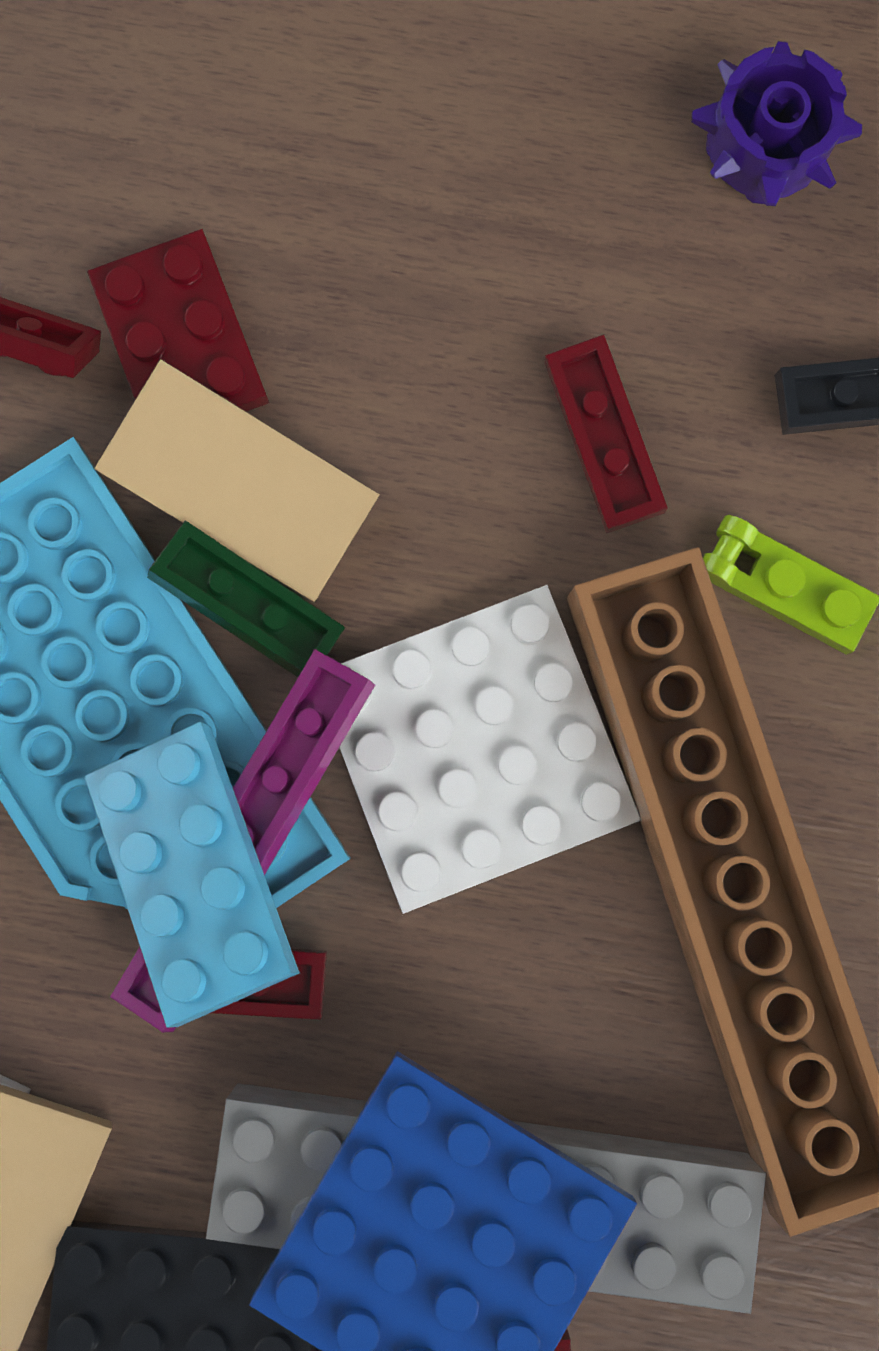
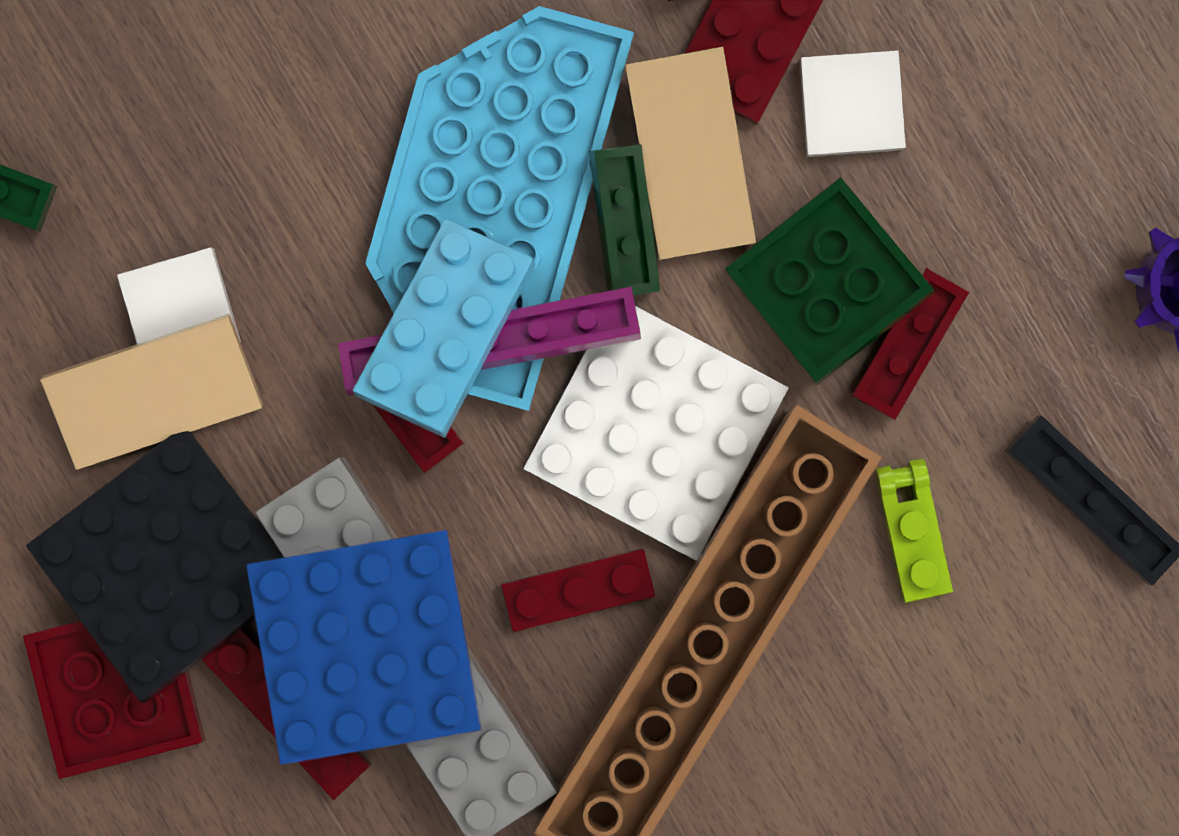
camera: 55 degrees right, 5 degrees up
(327, 295) = (852, 103): none -> white tile
(478, 456) = (829, 281): none -> dark green plate
(569, 964) = (578, 590): none -> dark red plate

